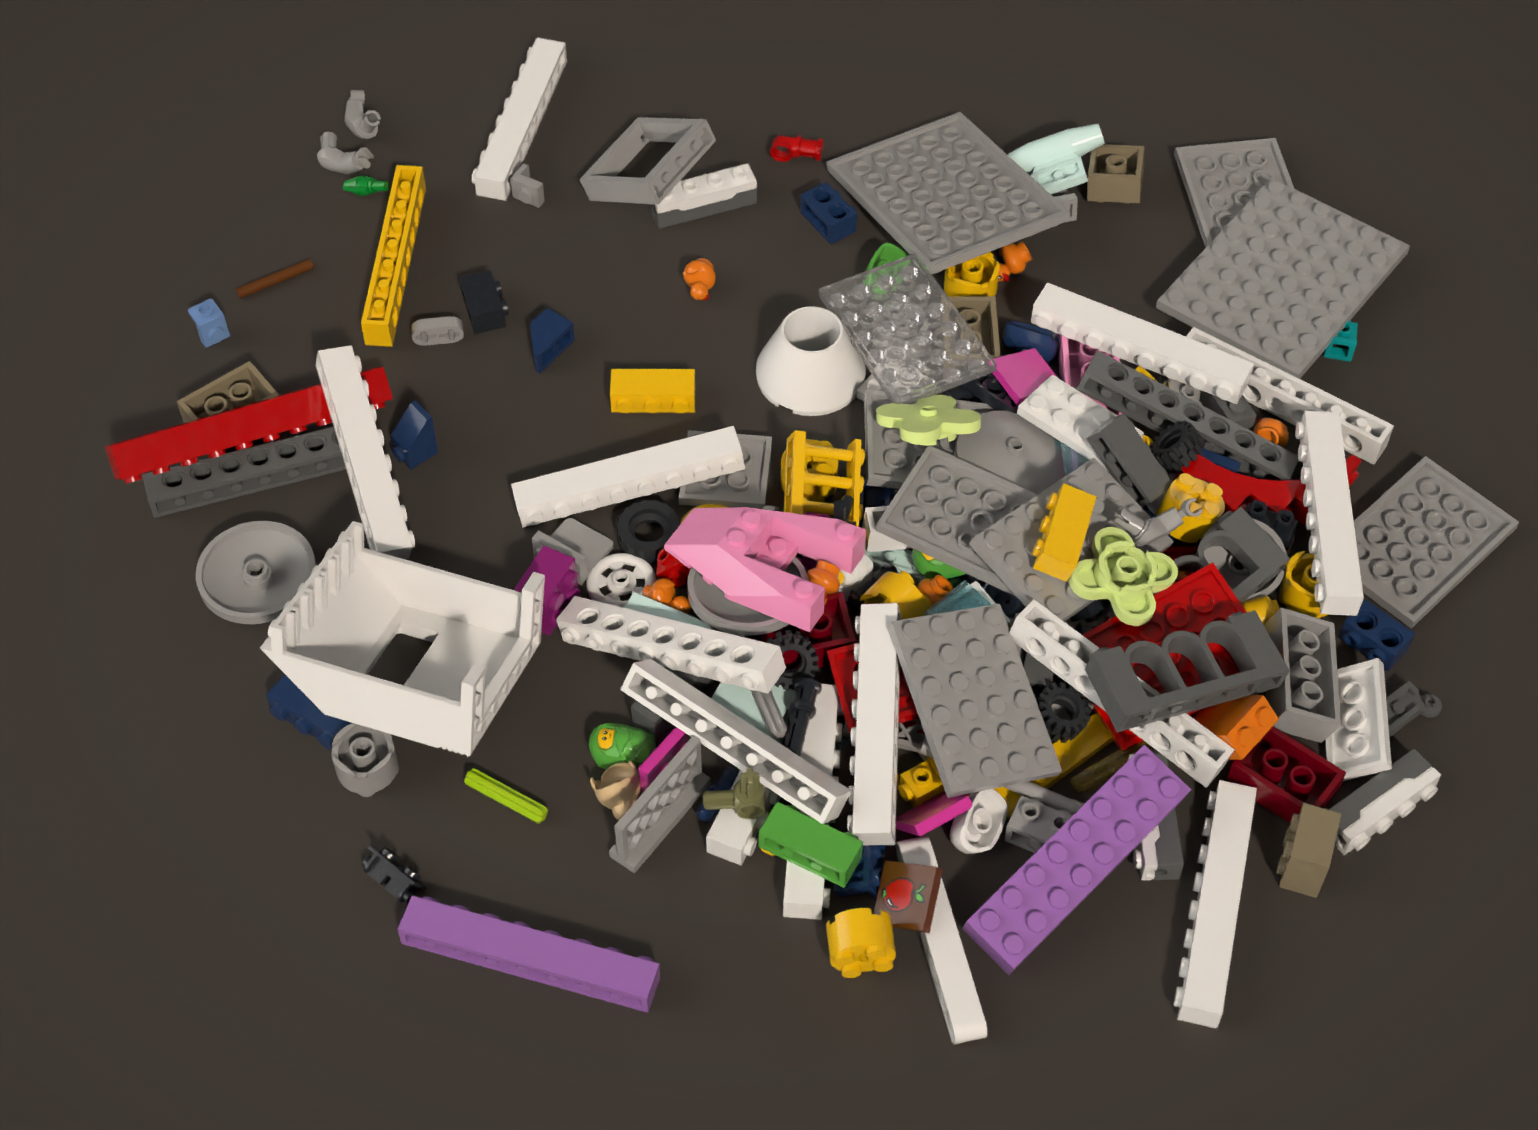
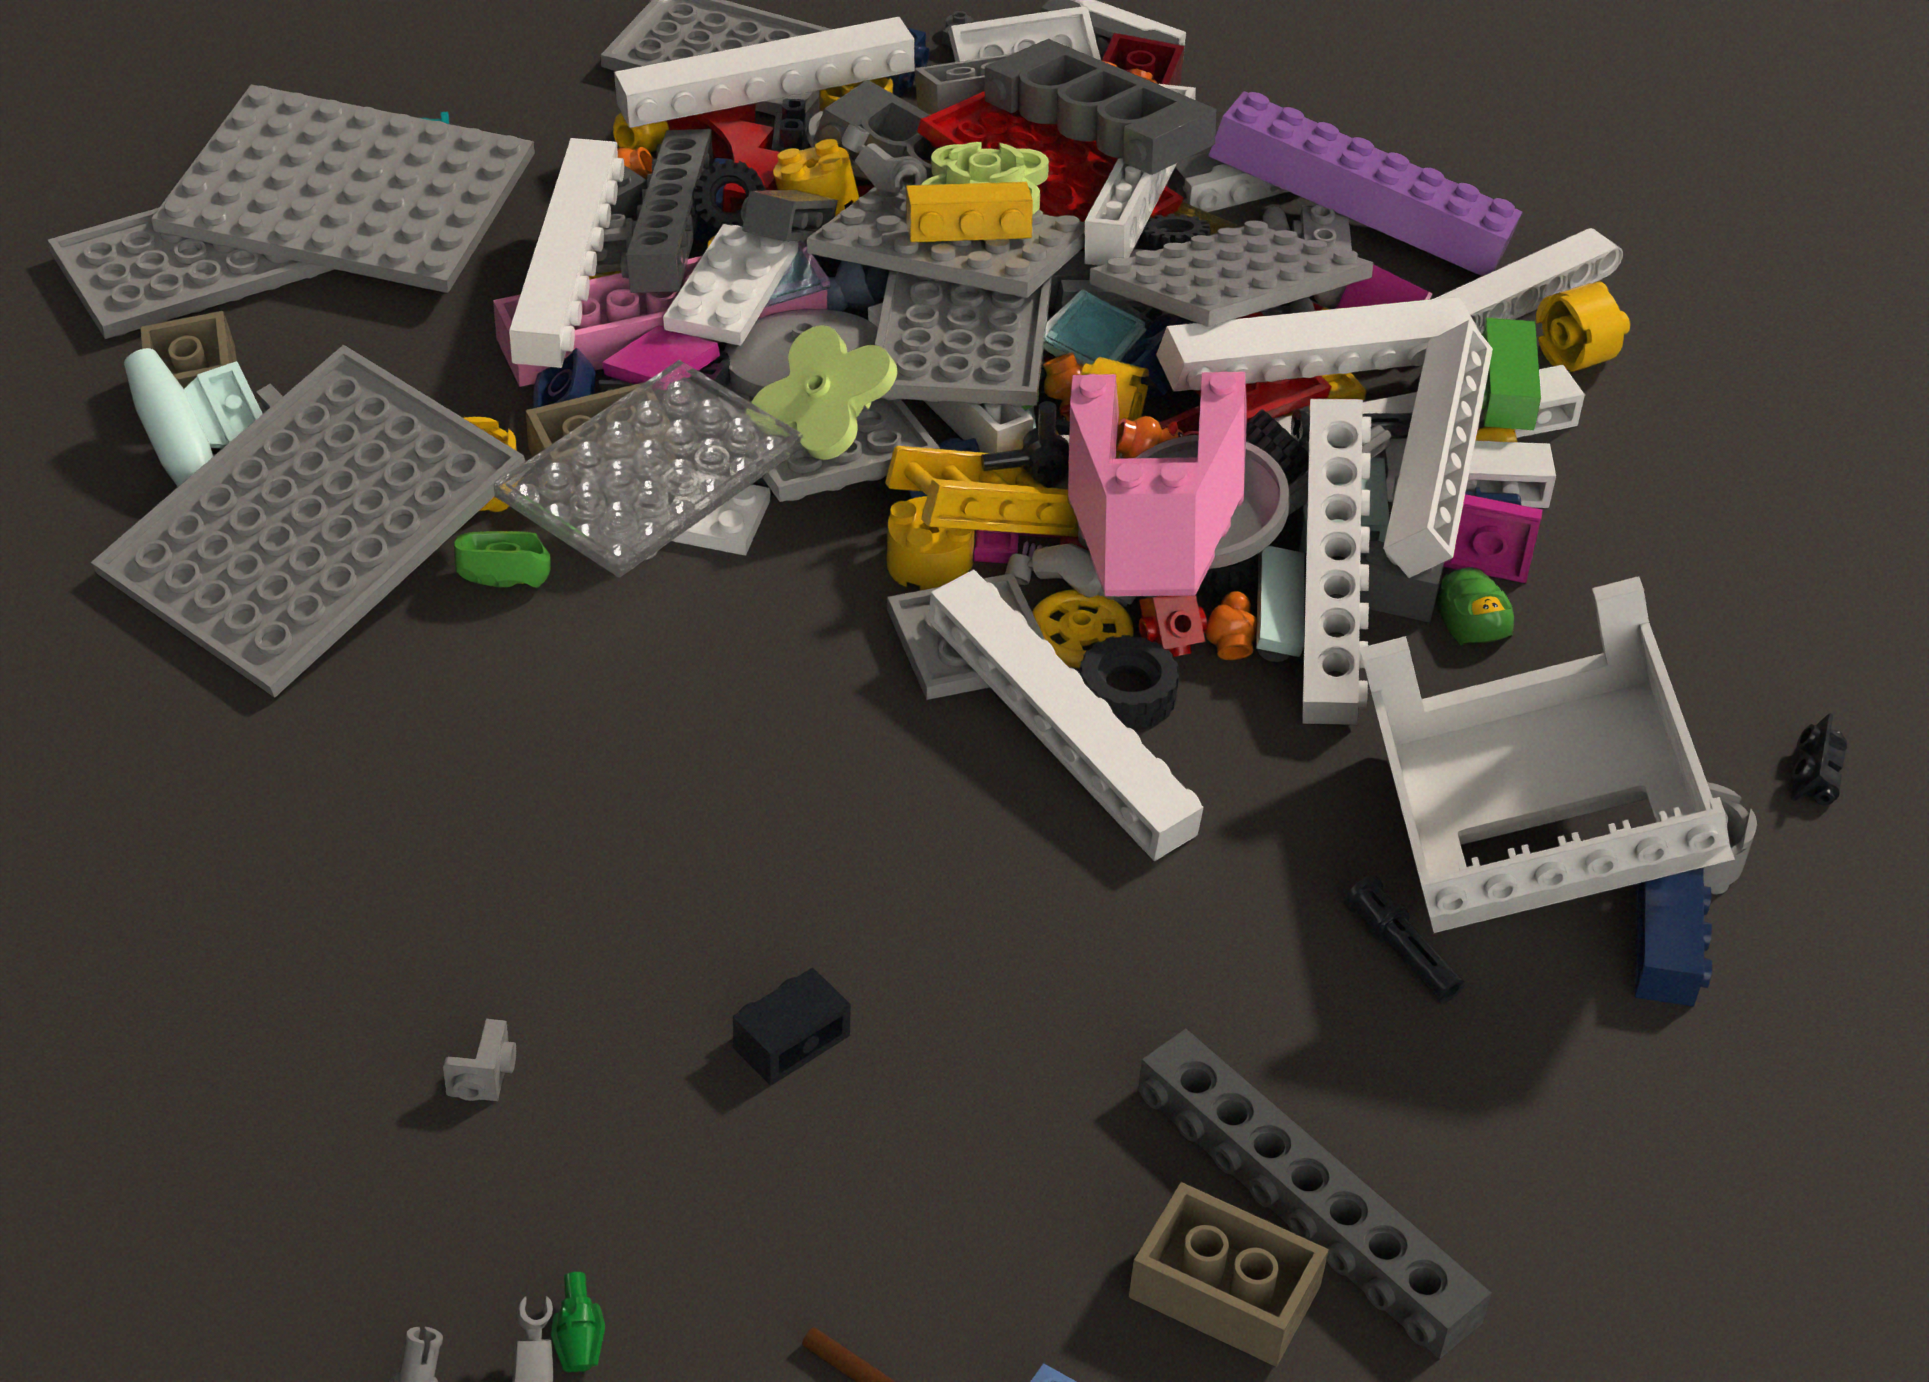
camera: 115 degrees left, 10 degrees down
(232, 428) = (1277, 1193): red brick -> none
(253, 571) = (1511, 1091): light grey dish -> none
(363, 452) = (1226, 1013): white brick -> none
(393, 256) = (747, 1182): yellow brick -> none
(414, 437) = (1138, 990): dark blue slope -> none
(437, 330) = (886, 1066): light grey beam -> none
(520, 118) = (293, 1138): white brick -> none
(530, 953) = (1815, 603): medium lavender brick -> none
(550, 337) = (832, 911): dark blue slope -> none
(559, 584) = (1317, 730): magenta brick -> none
(577, 542) = (1216, 753): light grey bracket -> none
(616, 561) = (1226, 694): white plate -> none
(618, 787) = (1544, 573): tan piece -> none
(652, 390) = (870, 752): yellow brick -> none
(660, 807) = (1565, 556): light grey fence -> none
(692, 140) = (393, 804): light grey window -> none
(700, 278) = (600, 768): orange animal -> none
(706, 196) = (416, 813): white piece -> none
(745, 798) = (1498, 436): olive axle -> none
(796, 148) = (242, 732): red connector -> none
(810, 364) = (723, 593): white cone -> none
(828, 213) = (389, 657): dark blue brick -> none
(909, 895) = (1498, 292): reddish brown tile -> none
(1217, 904) = (1369, 111): white brick -> none
(1290, 396) = (585, 114): white brick -> none
(1308, 849) = (1220, 52): dark tan brick -> none

